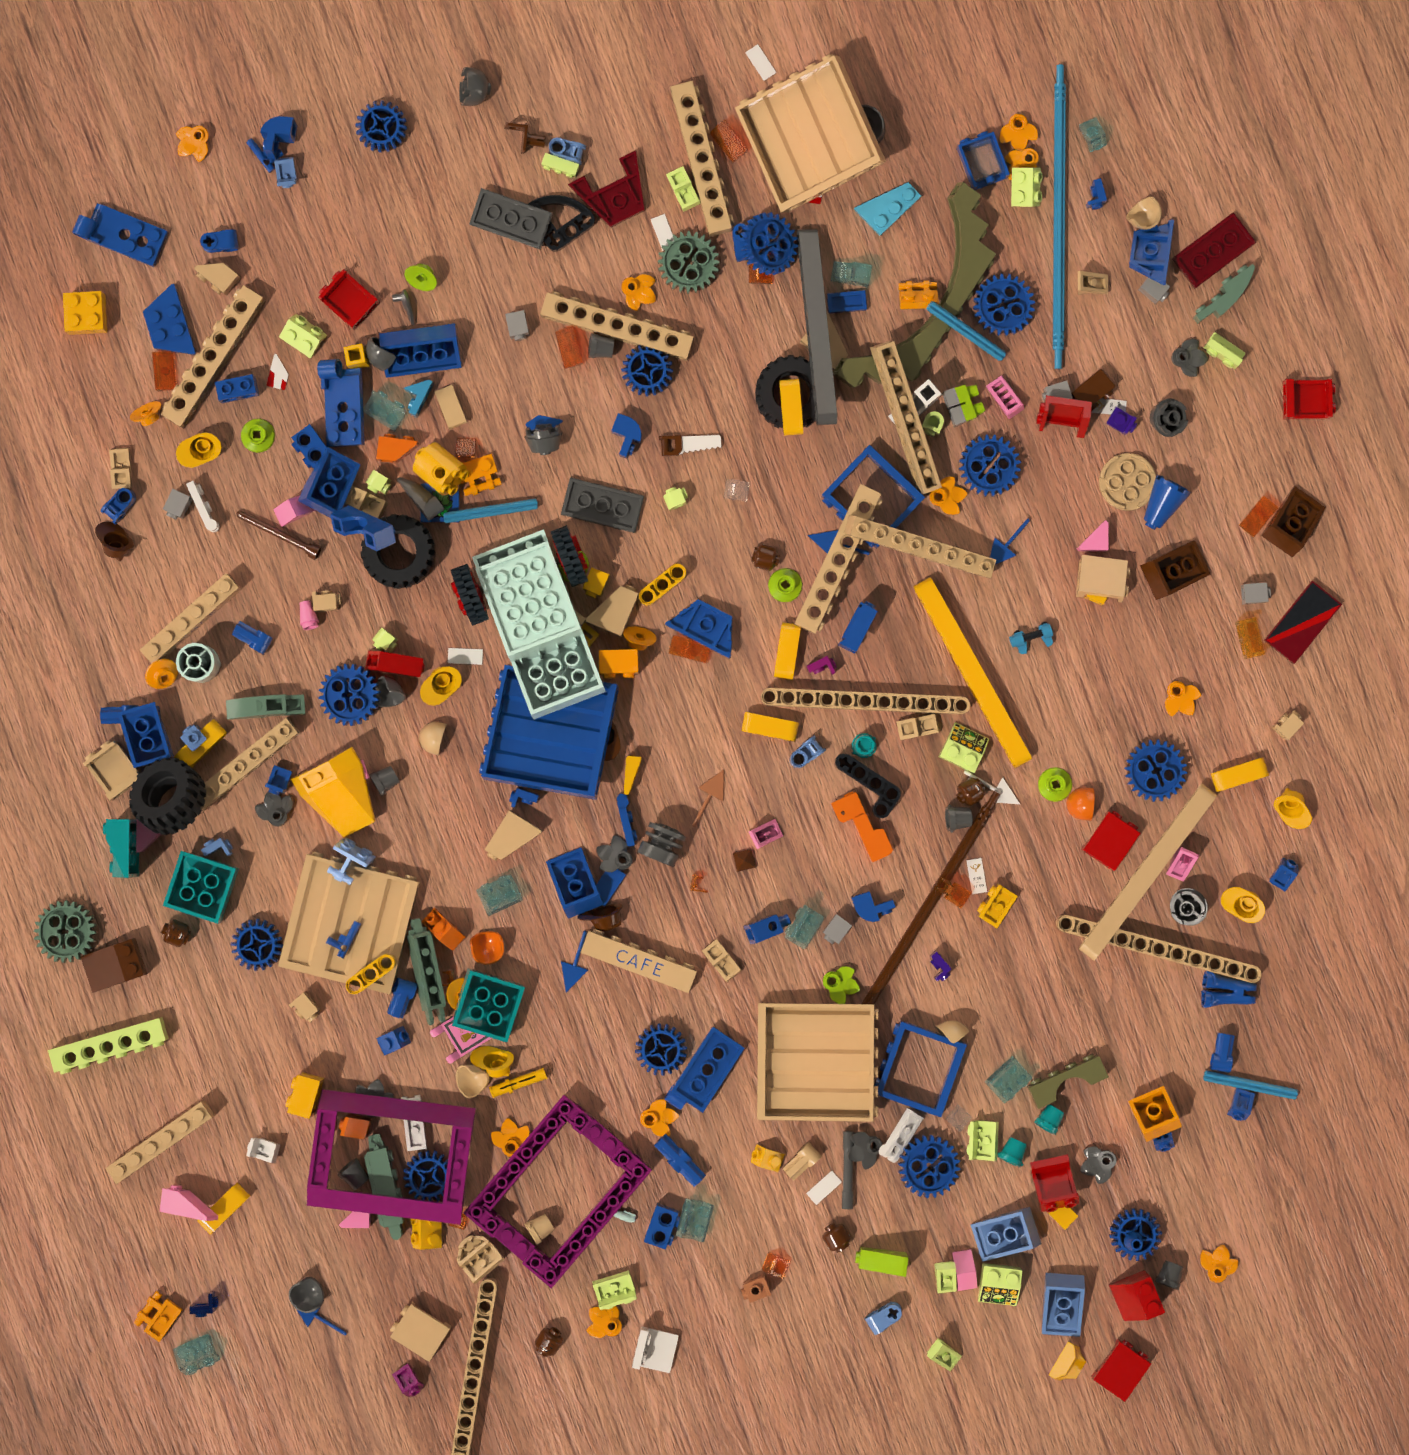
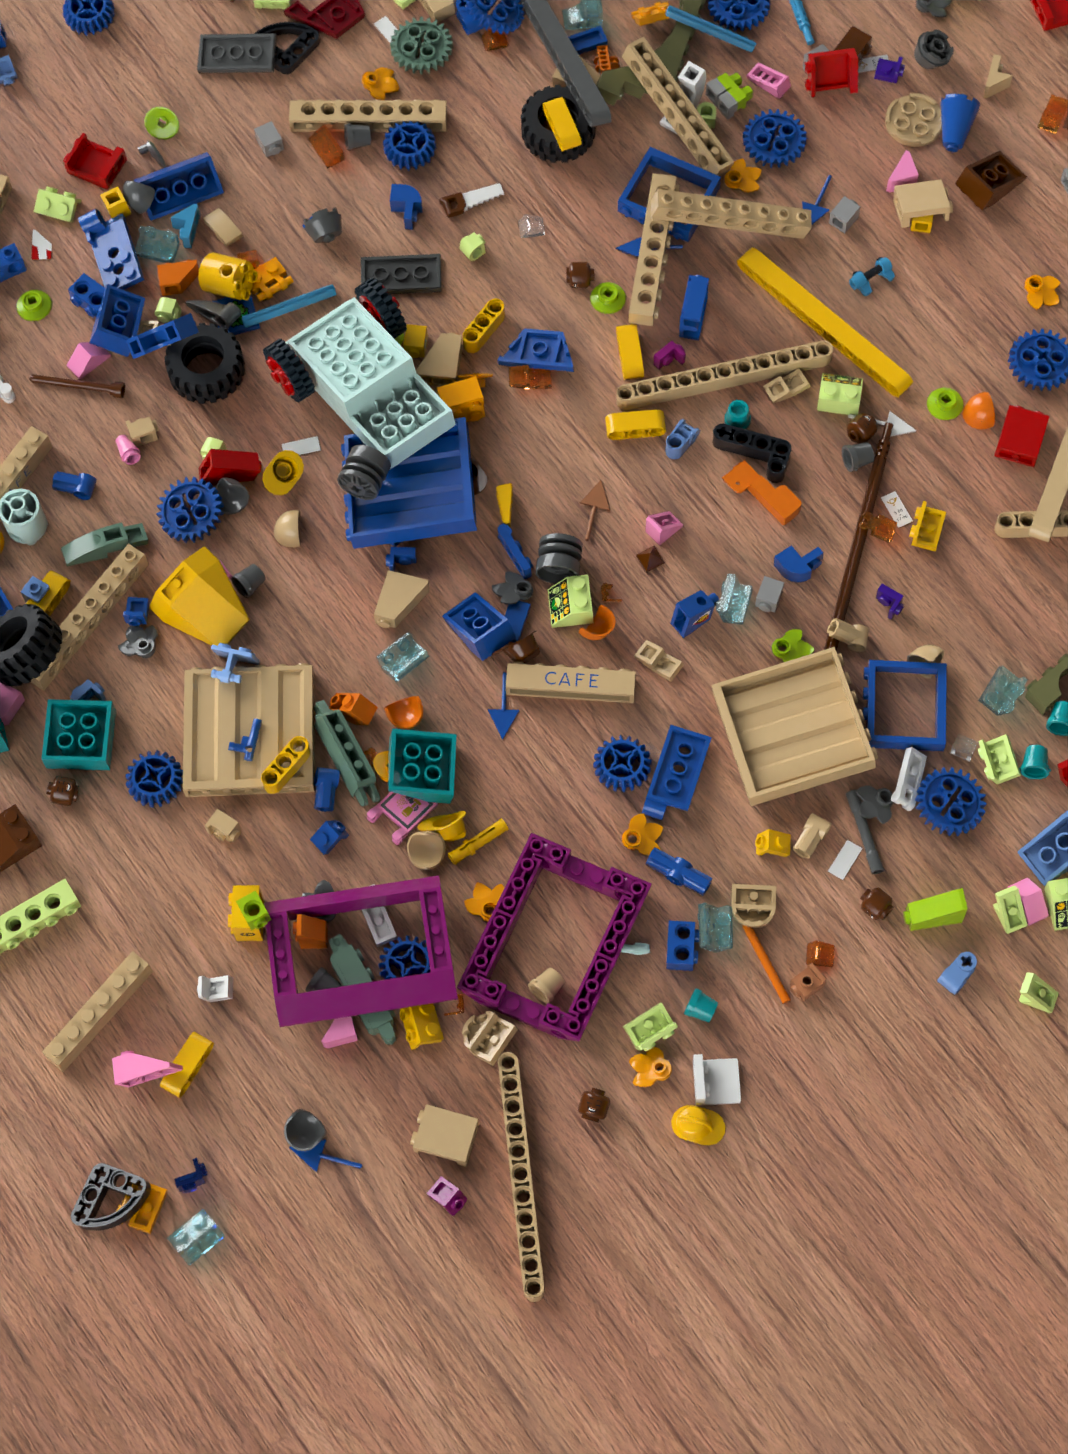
camera: 10 degrees left, 20 degrees down
(136, 1291) = (109, 1182): none -> black beam
(308, 1099) = (249, 903): none -> lime brick
(509, 721) = (364, 472): none -> dark grey wheel
(629, 1381) = (698, 1125): none -> yellow piece
(660, 885) = (571, 602): none -> yellowish green slope
(661, 1283) = (701, 1006): none -> teal piece
(679, 916) = (603, 625): none -> orange helmet
(728, 1259) = (766, 964): none -> orange bar
(733, 1208) = (753, 904): none -> tan slope
(858, 330) = (605, 62): none -> orange piece
(894, 989) = (853, 635): none -> tan piece
(1028, 566) = (844, 214): none -> light grey brick
(1216, 466) = (996, 80): none -> tan slope

